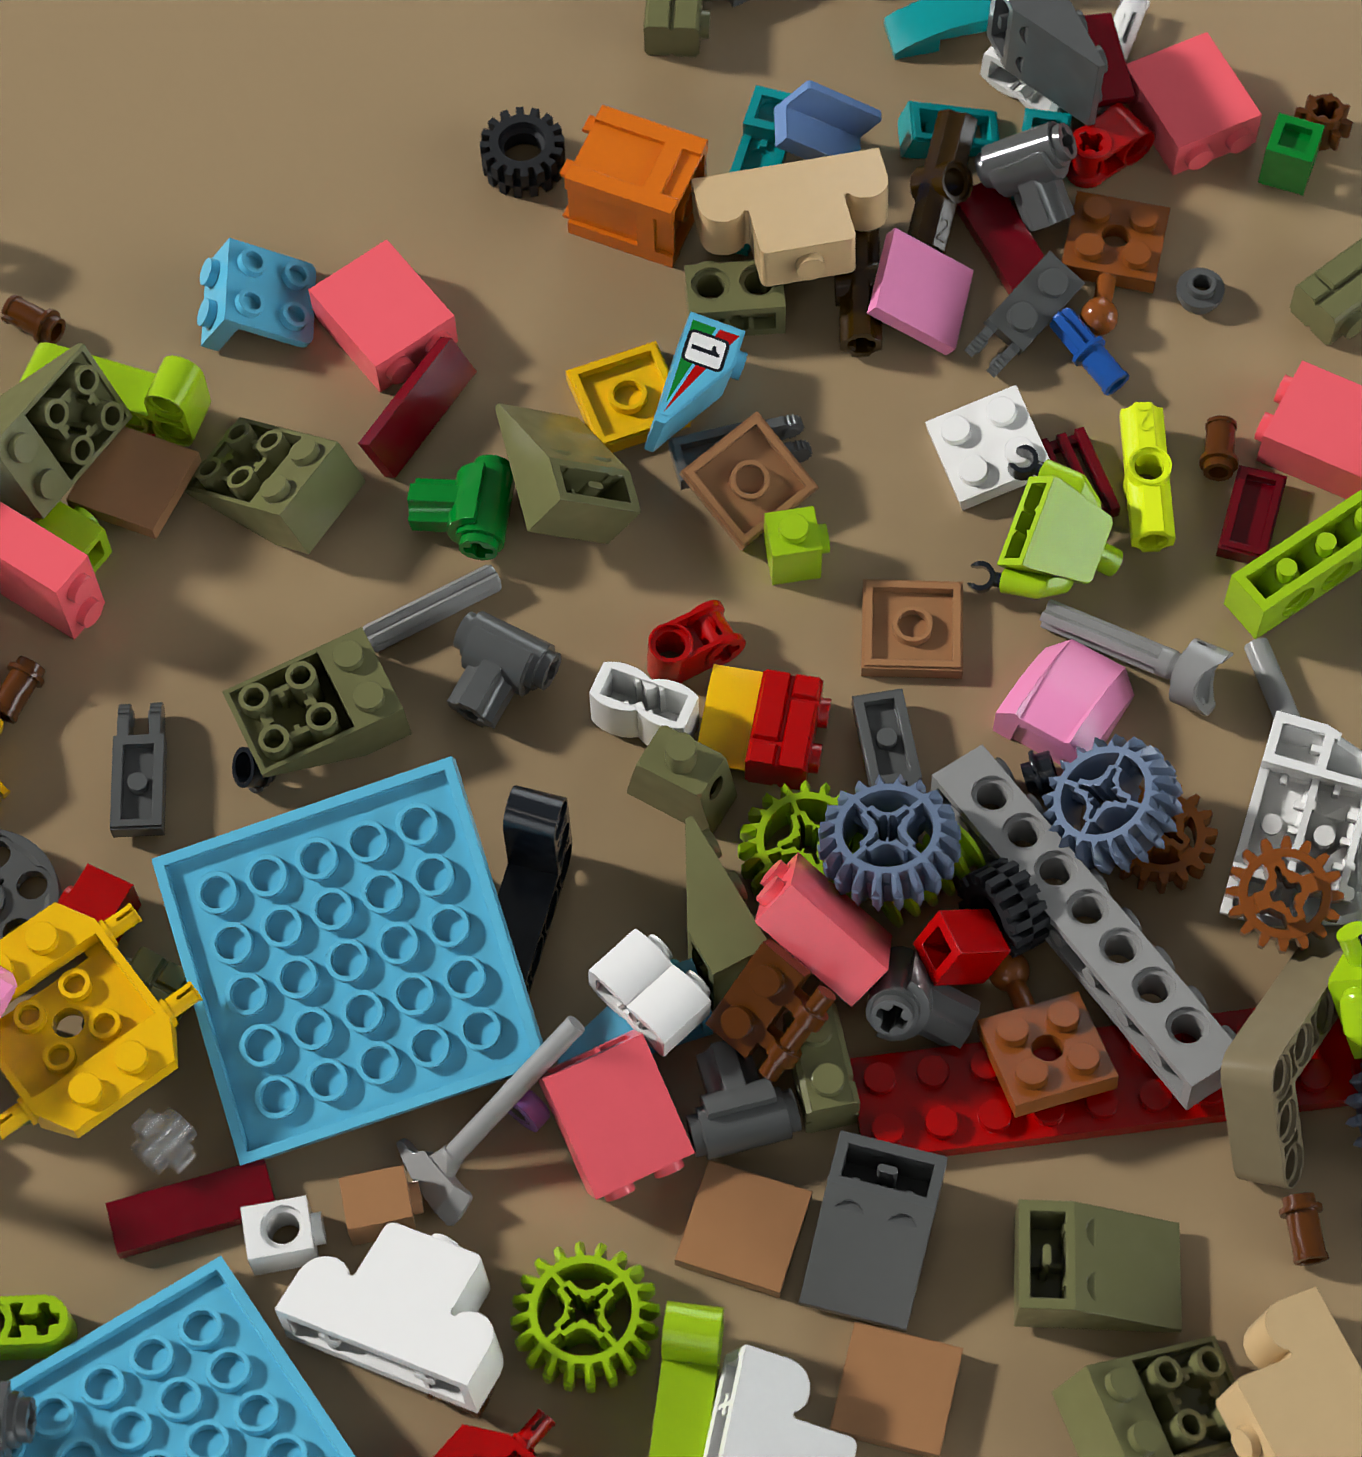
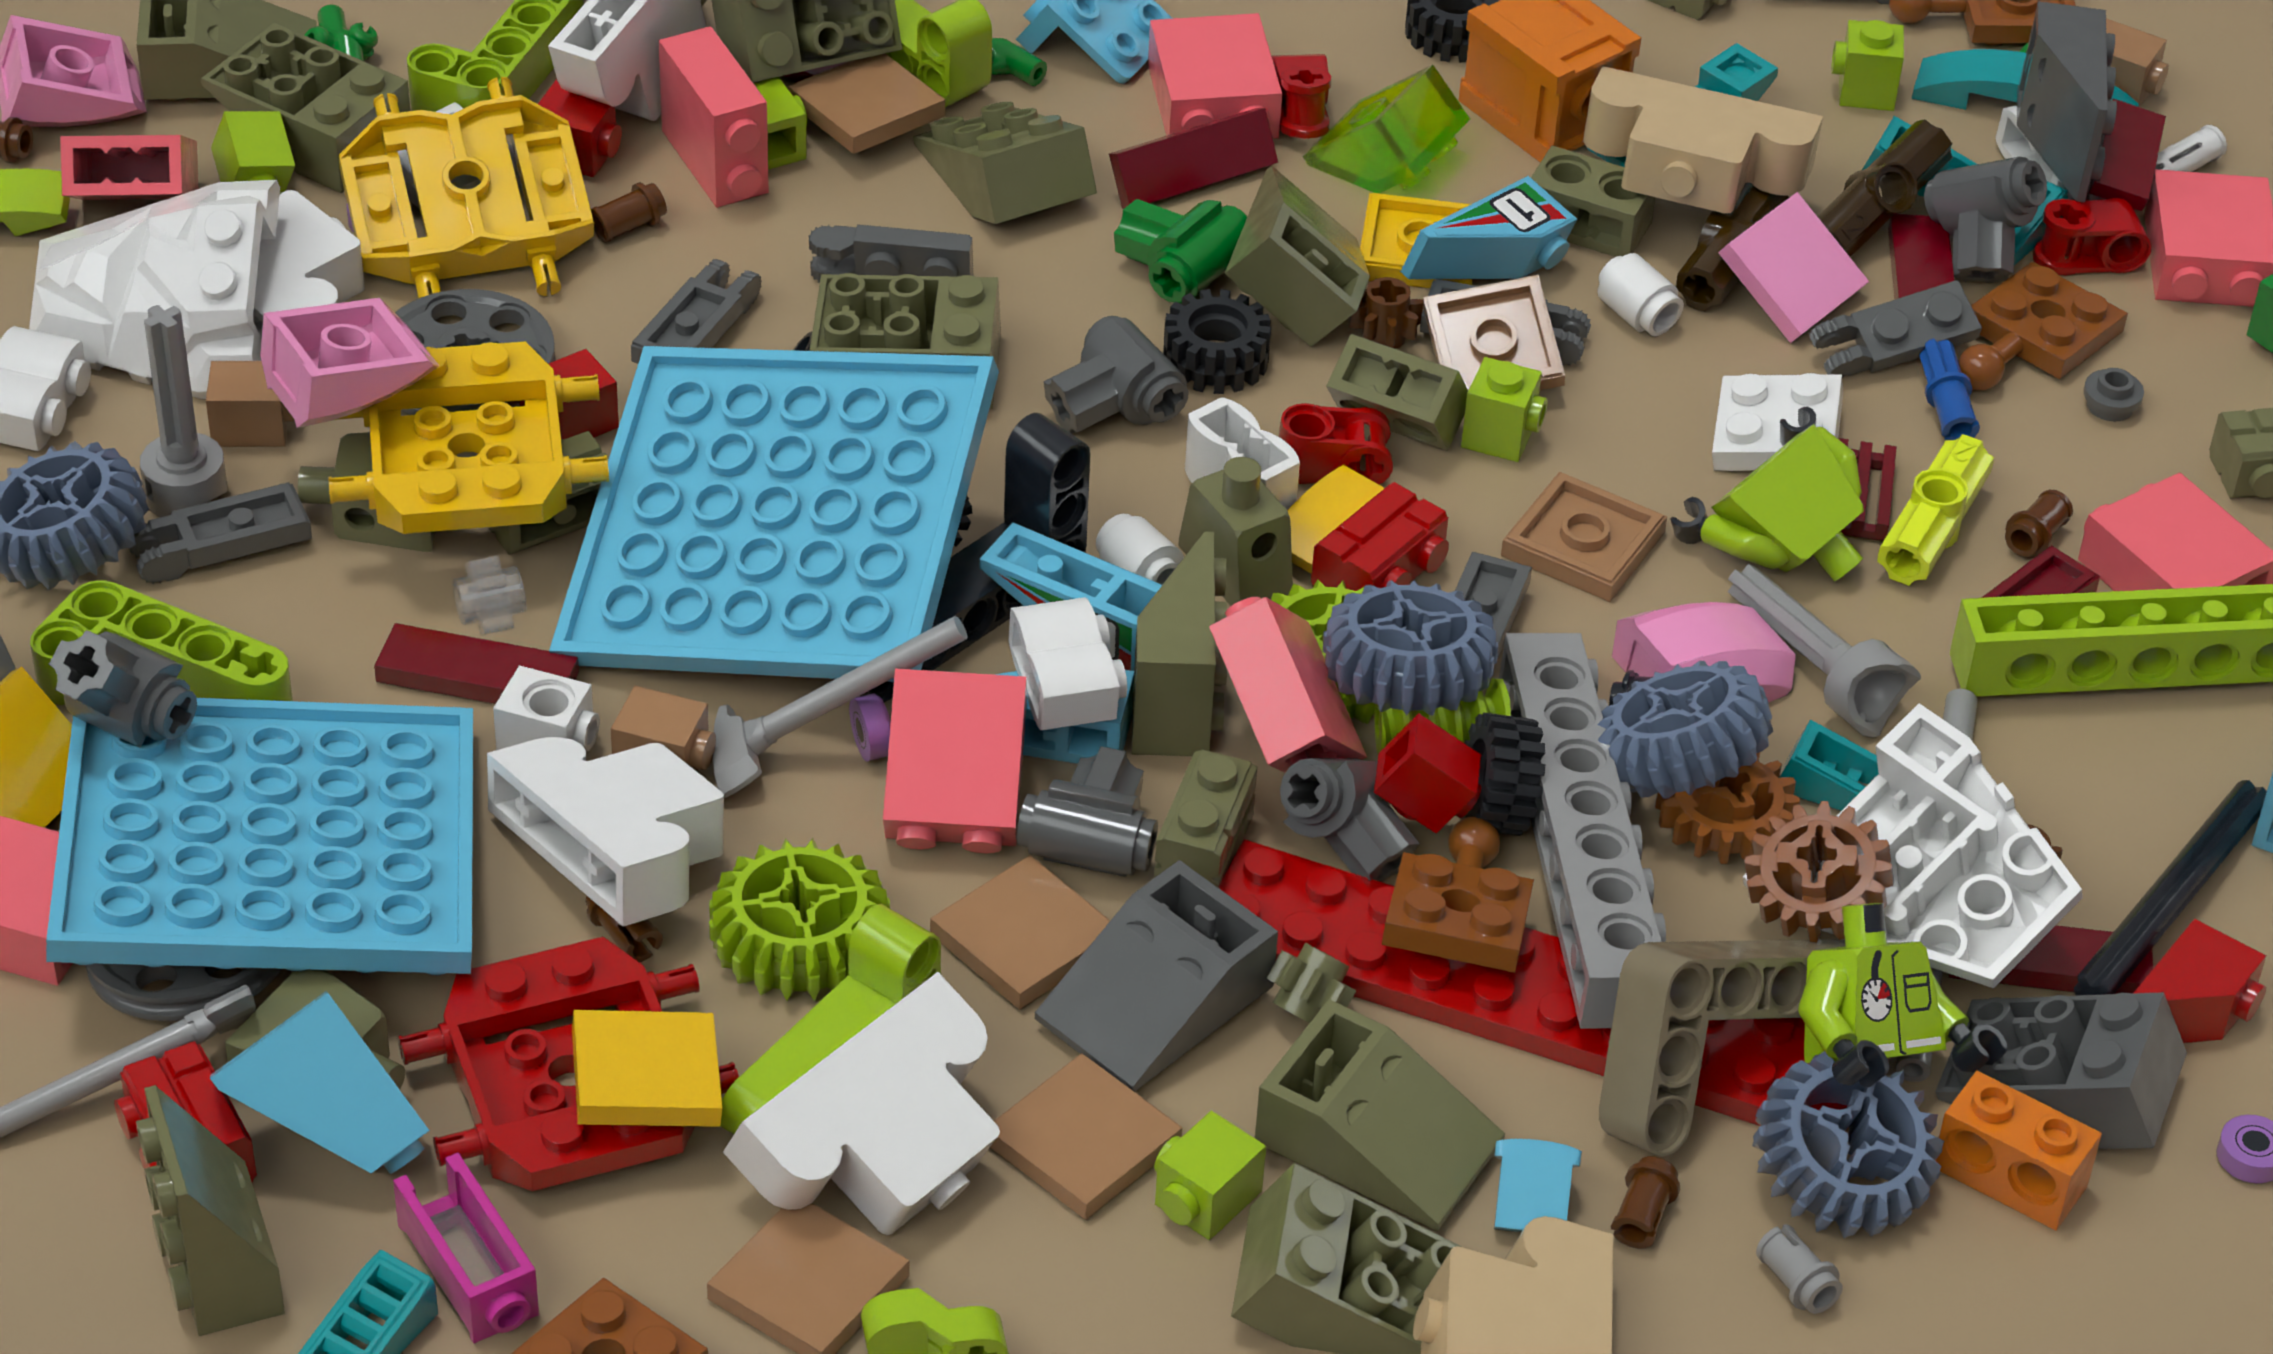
camera: 25 degrees right, 20 degrees down
(220, 370) = (1014, 60): none -> green arm
(251, 631) = (889, 252): none -> dark grey hinge
(432, 607) = (1078, 316): light grey axle -> none
(463, 295) = (1304, 94): none -> red piece
(538, 559) = (1218, 364): none -> black tyre
(548, 305) = (1392, 134): none -> clear neon green slope
(608, 904) = (1048, 571): none -> medium azure slope
(616, 829) = (1138, 547): none -> white brick
(656, 490) = (1388, 313): none -> reddish brown gear
(714, 573) = (1413, 393): none -> olive brick
(758, 1000) = (1178, 722): reddish brown plate -> none
(821, 122) = (1787, 77): medium blue panel -> none
(821, 372) = (1639, 294): none -> white brick
(859, 52) = (1869, 64): none -> lime brick
(979, 1171) = (1309, 982): none -> olive gear
(1007, 1383) = (1209, 1175): none -> lime brick
(1189, 757) = (1828, 767): none -> teal slope
(1228, 1259) = (1533, 1181): none -> medium azure tile

